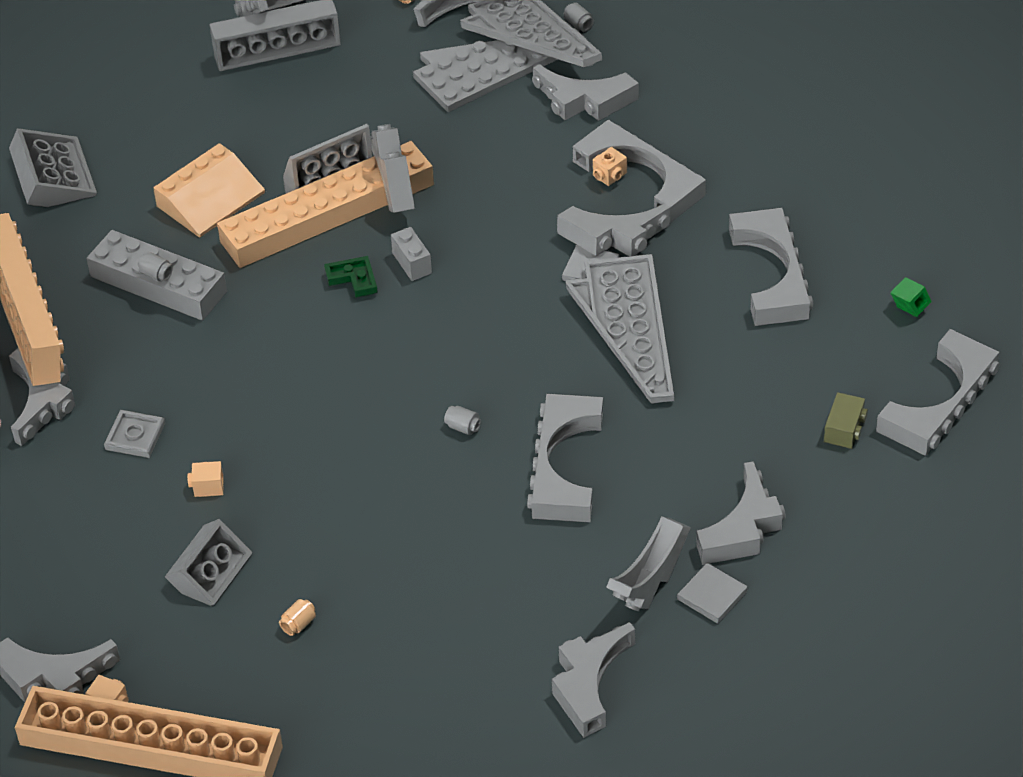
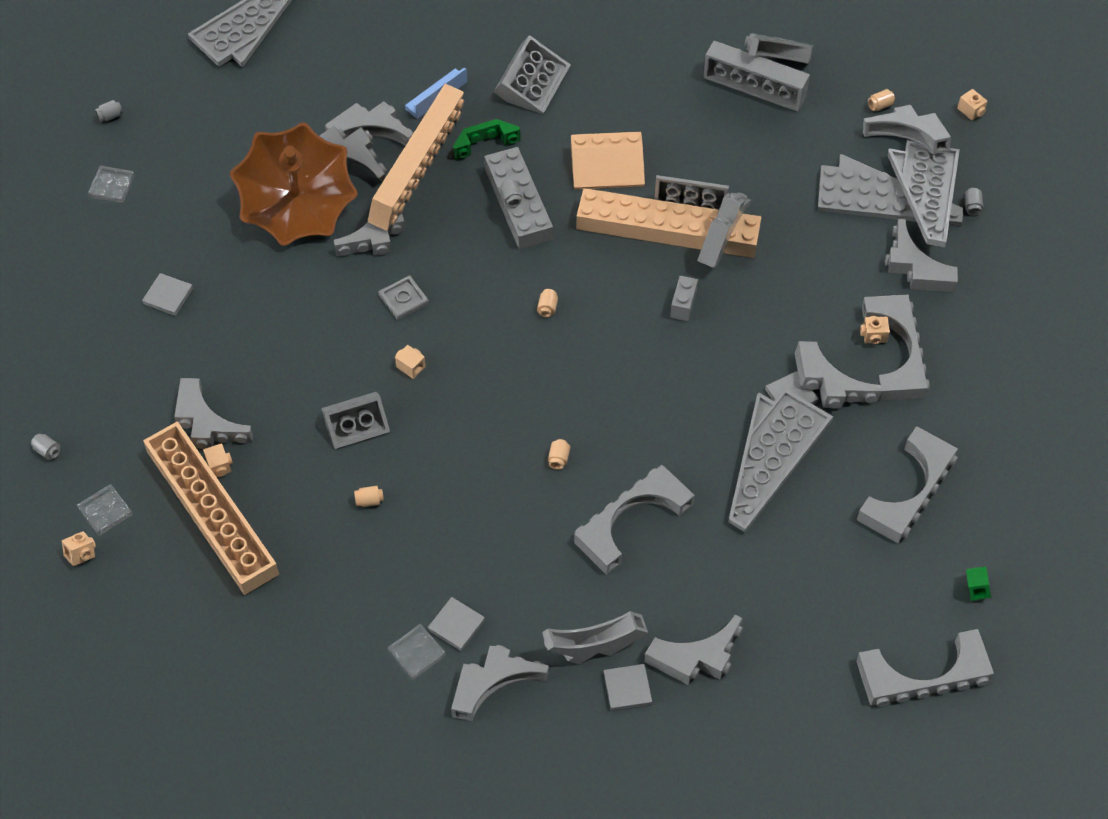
camera: 40 degrees right, 10 degrees up
(79, 229) = (508, 132): none -> green slope
(286, 342) = (547, 303): none -> light nougat brick
(354, 270) = (638, 285): dark green plate -> none
(439, 455) = (558, 454): none -> light nougat brick
(462, 419) = (597, 441): light grey brick -> none
(492, 707) = (416, 651): none -> clear plate
(501, 659) = (456, 624): none -> light grey tile
(845, 420) = (838, 637): olive brick -> none

